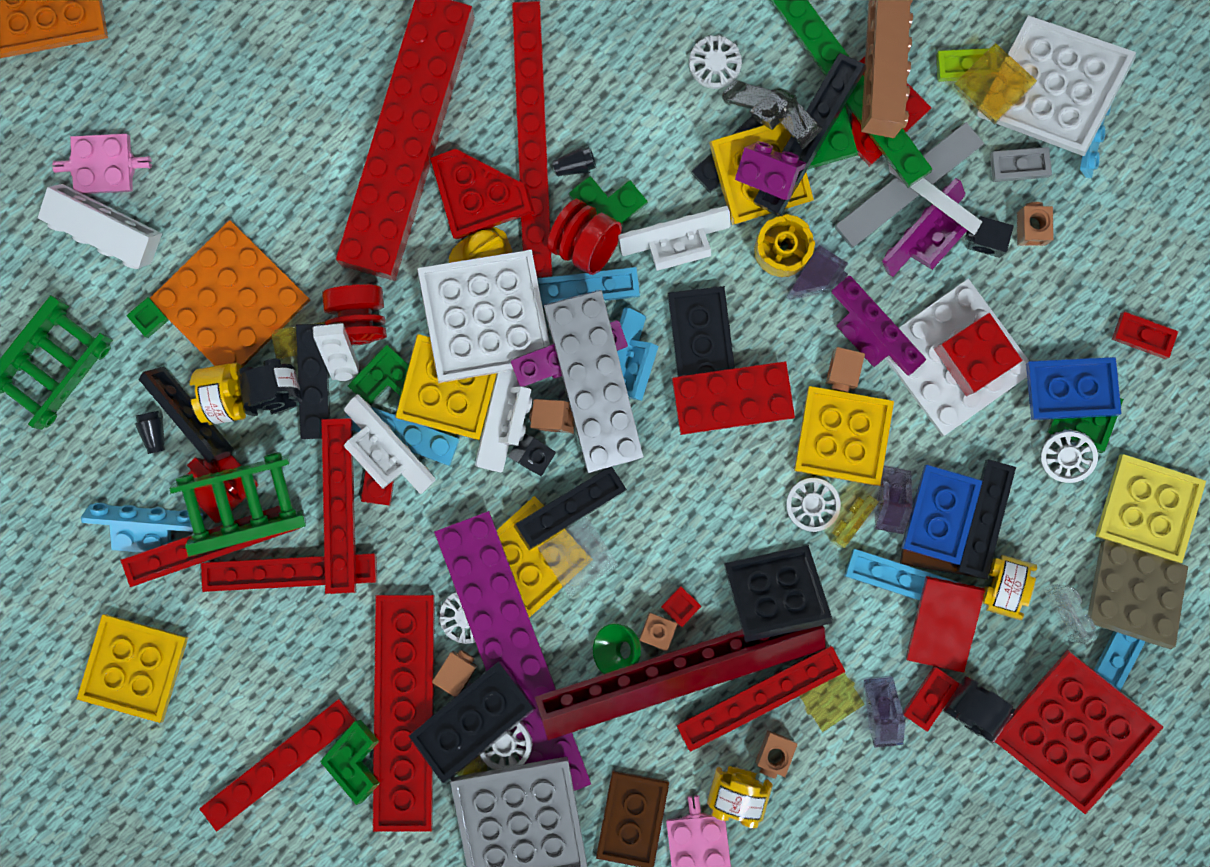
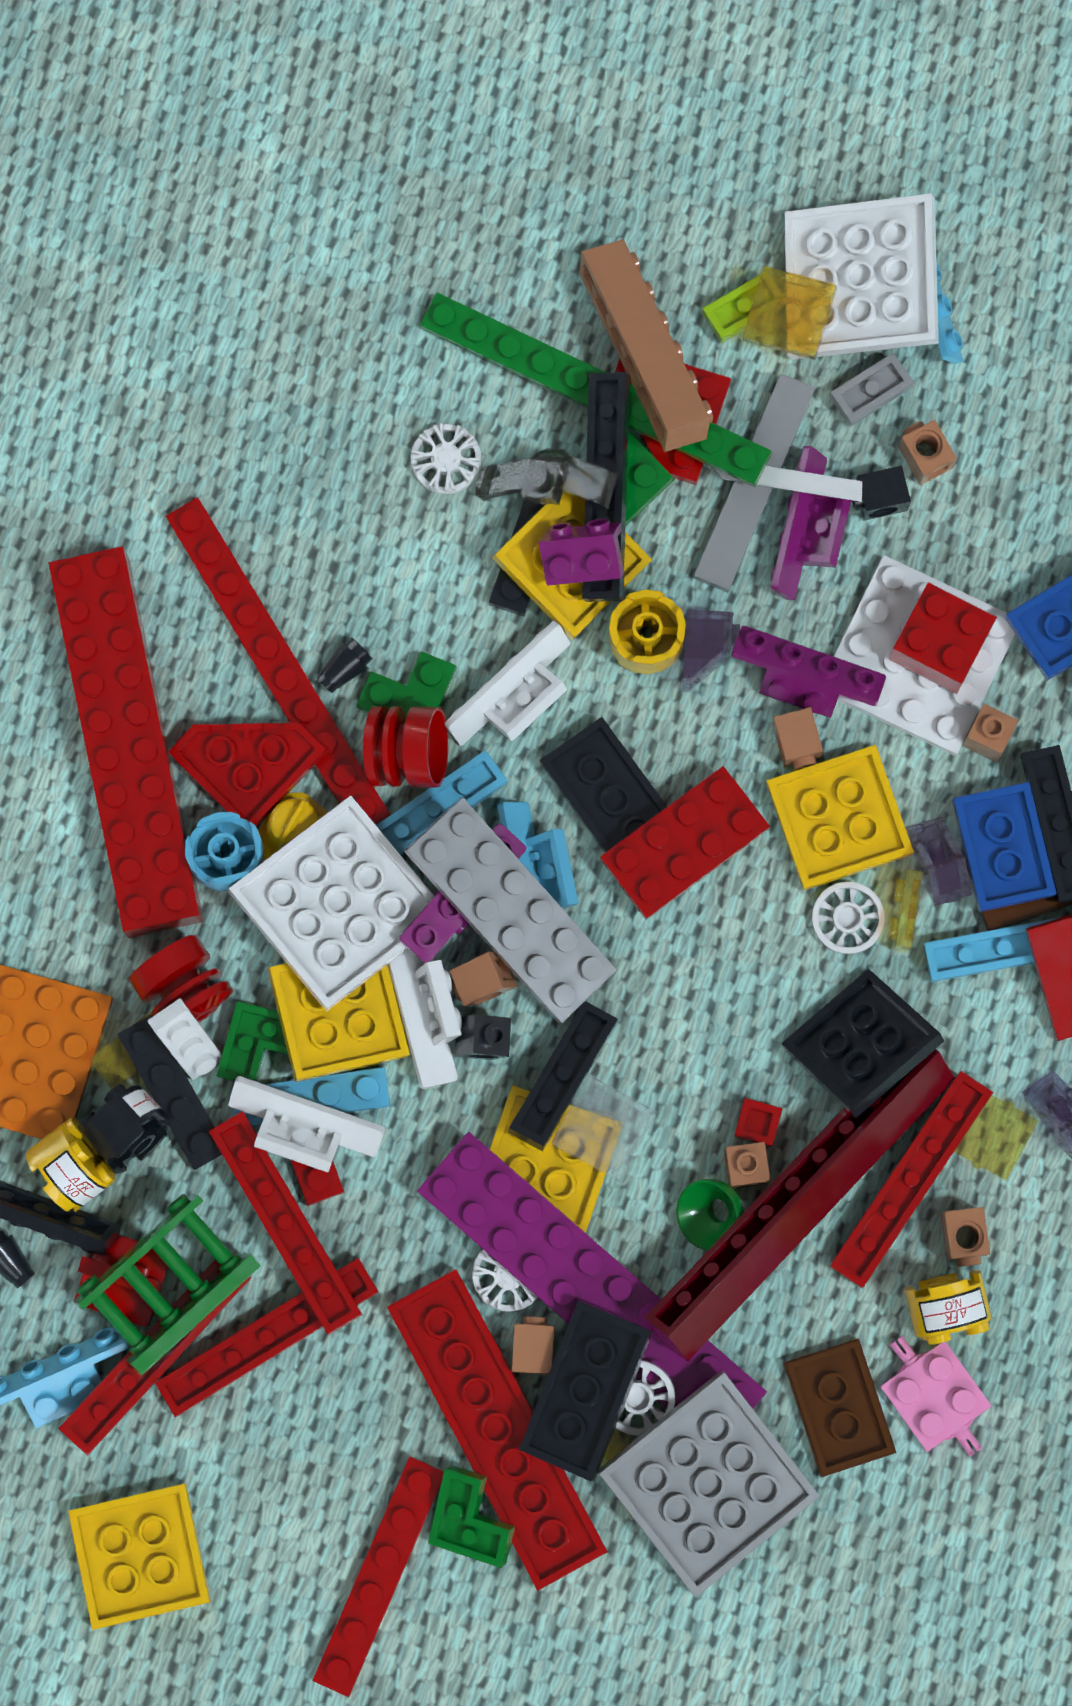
camera: 25 degrees left, 5 degrees down
(429, 241) = (223, 850): none -> medium azure cylinder
(974, 434) = (990, 733): none -> nougat brick

